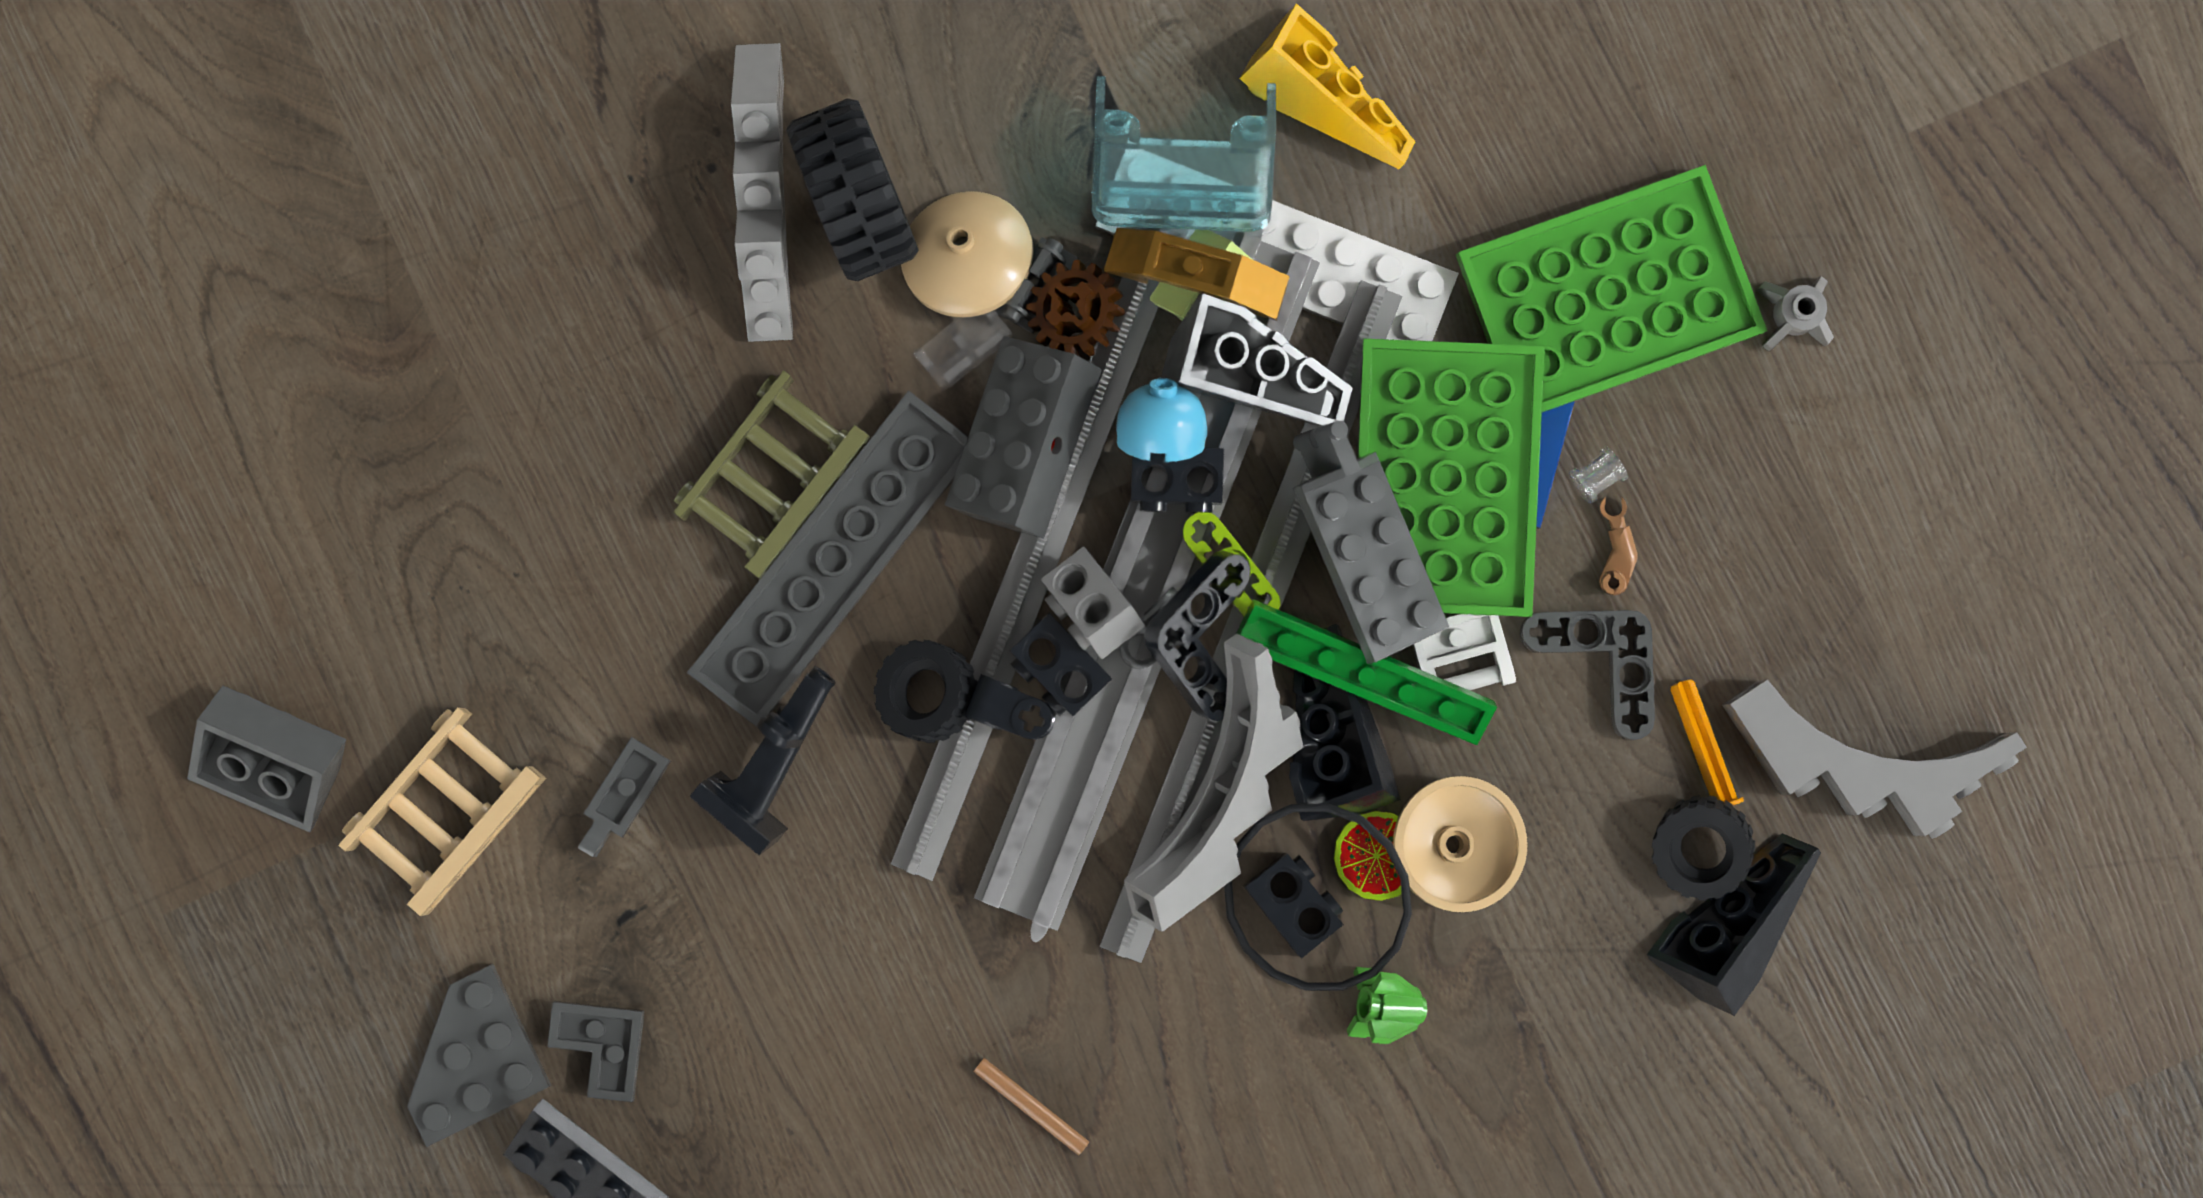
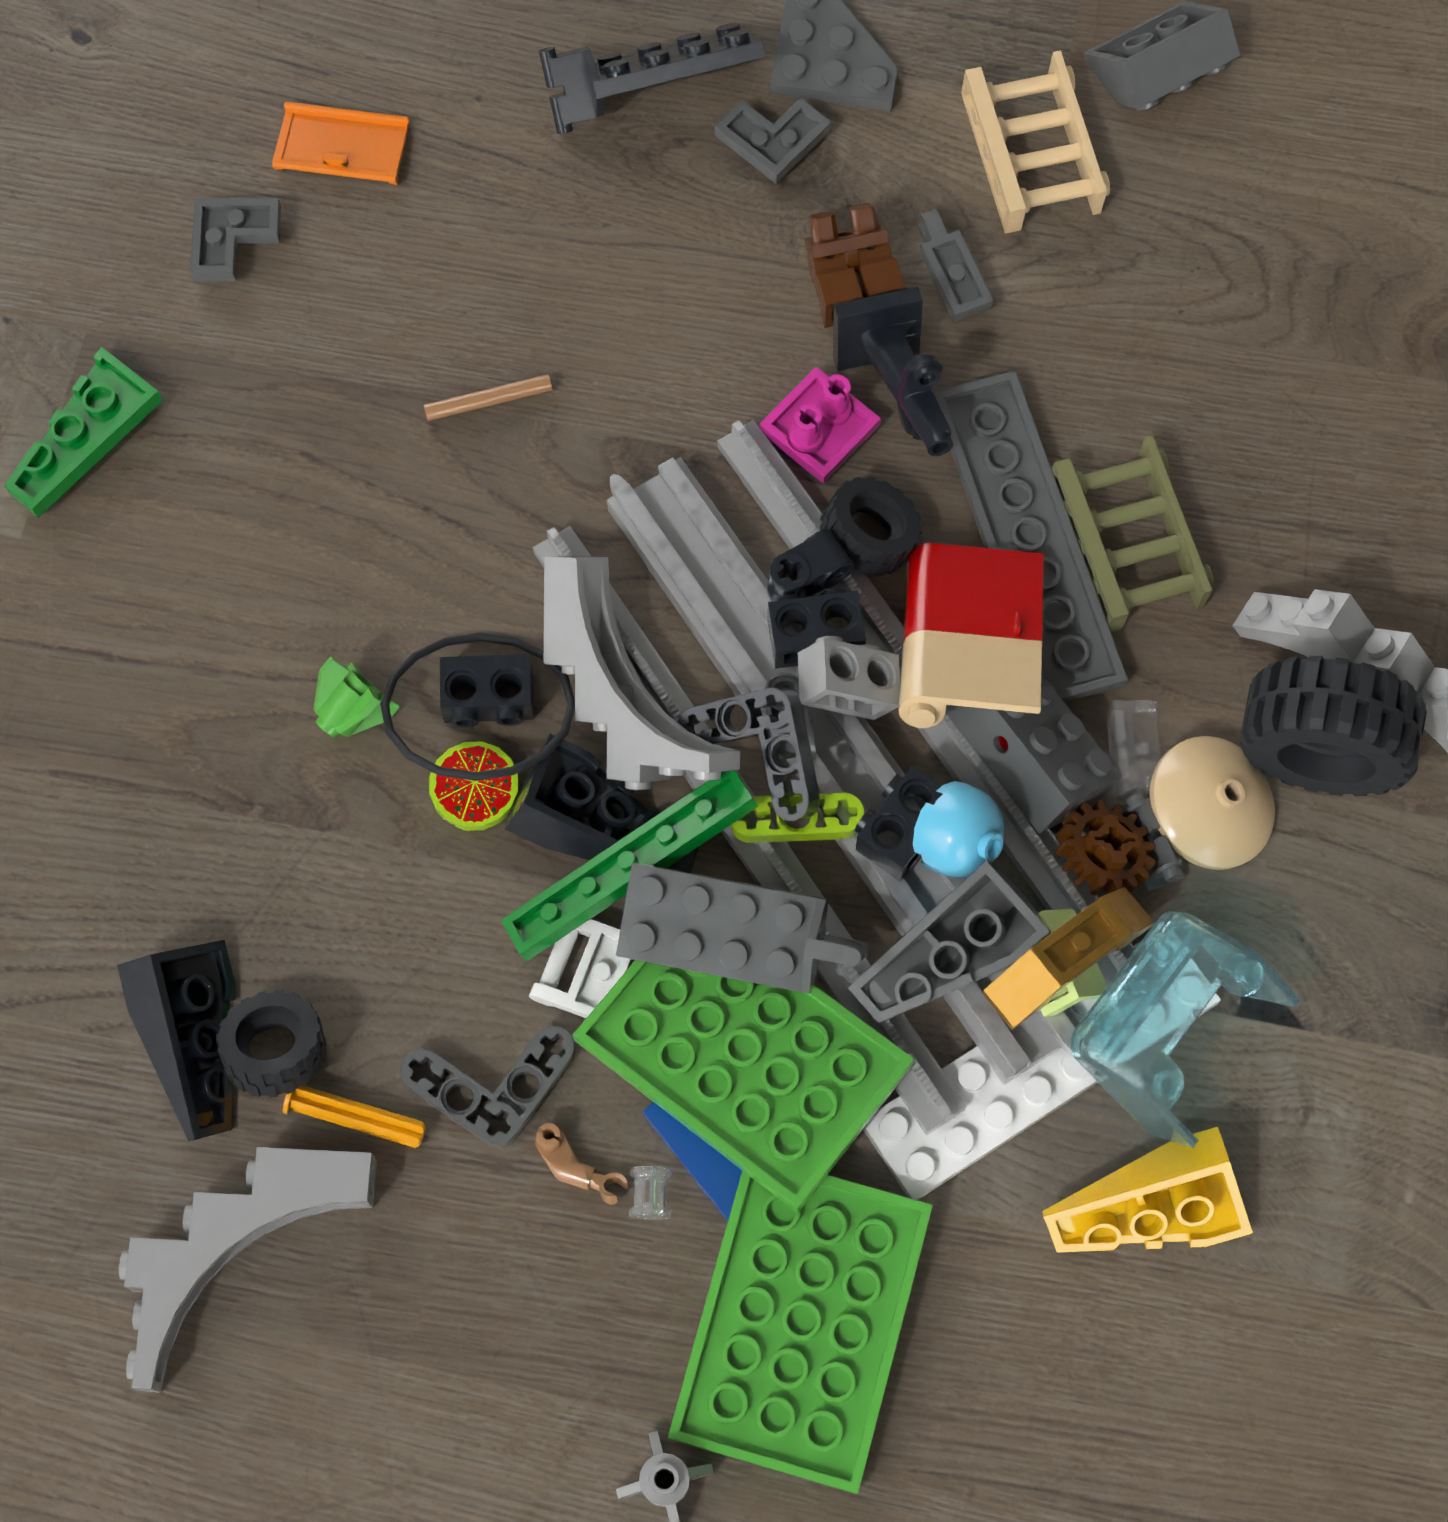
camera: 135 degrees right, 15 degrees down
(671, 894) = (850, 261): none -> reddish brown hips
(855, 804) = (820, 423): none -> dark pink plate
(973, 535) = (971, 632): none -> door
(1489, 840) = (407, 827): tan dish -> none

